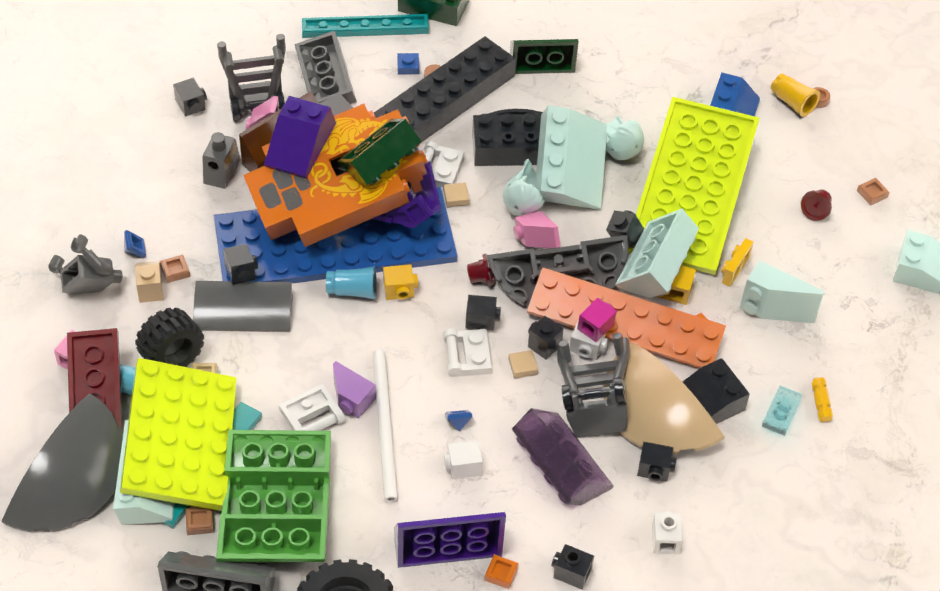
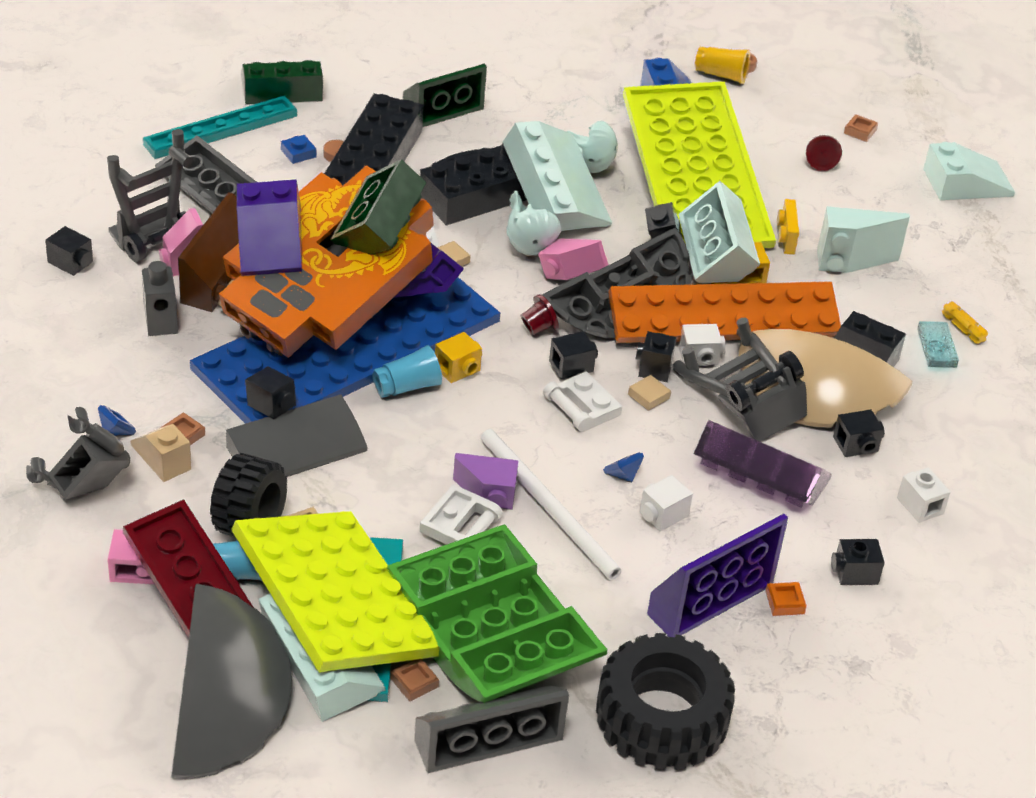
camera: 30 degrees left, 10 degrees down
(596, 319) = (707, 315): dark pink brick -> none

